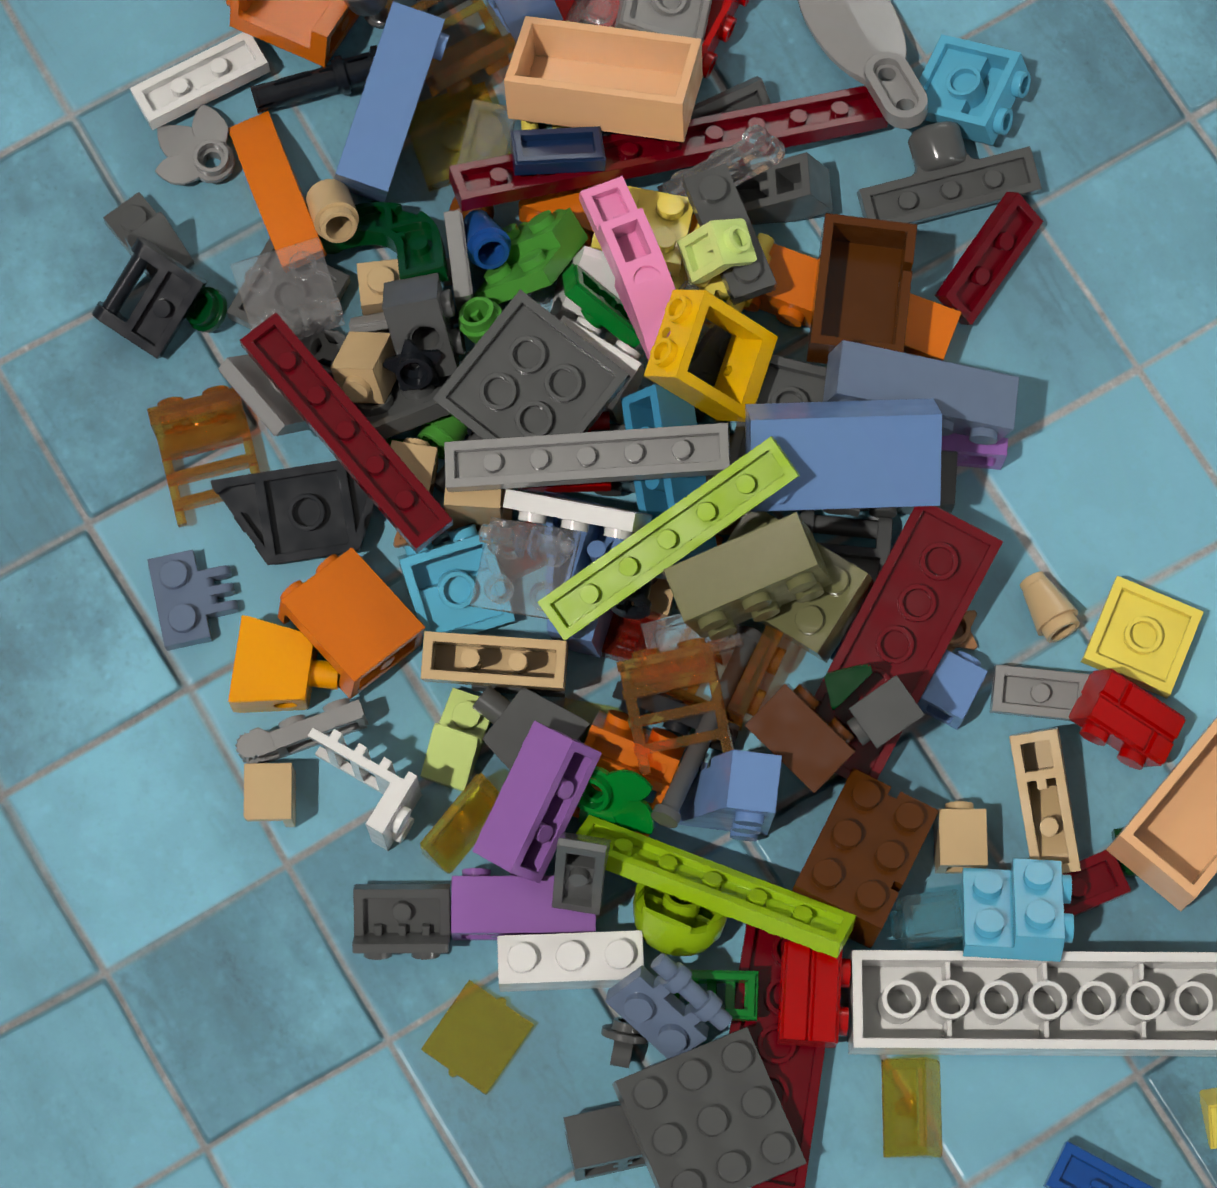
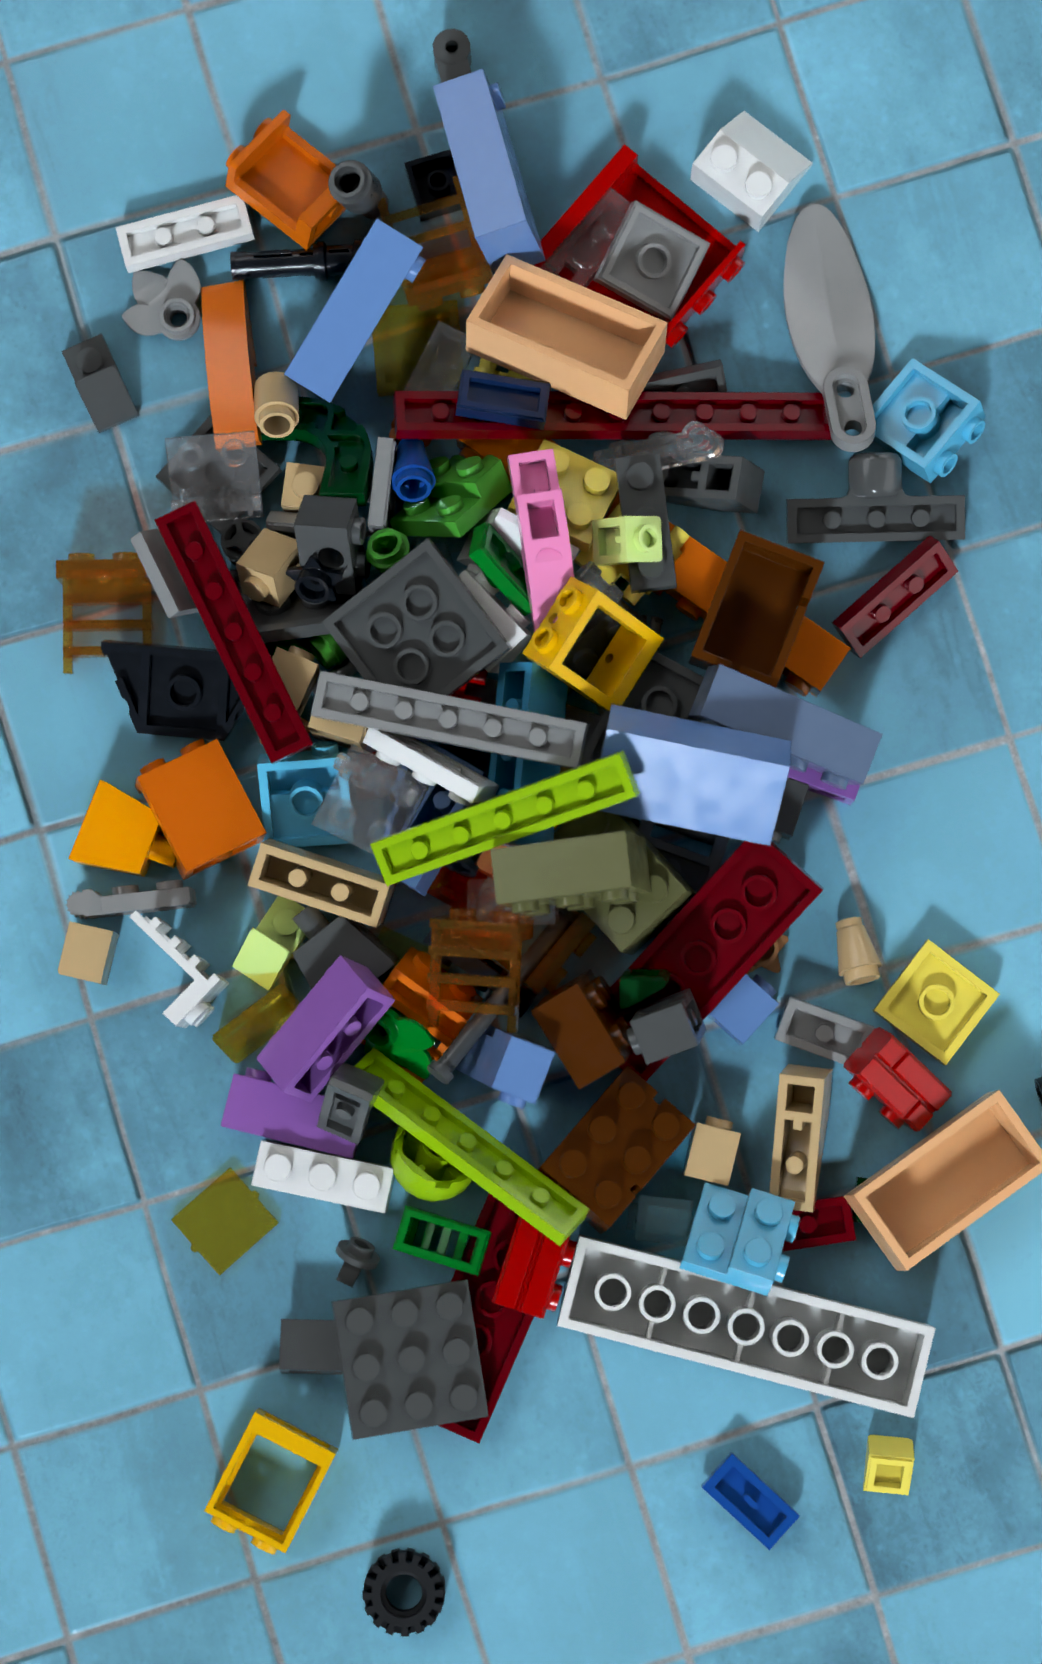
camera: 20 degrees right, 10 degrees up
(162, 304) = (95, 456): black plate -> none
(188, 598) = (57, 744): sand blue hinge -> none
(208, 310) = (137, 467): dark green plate -> none
(401, 920) = (180, 1100): dark grey bracket -> none
(659, 1015) = (398, 1245): sand blue plate -> none
(911, 1108) = (601, 1385): clear yellow slope -> none

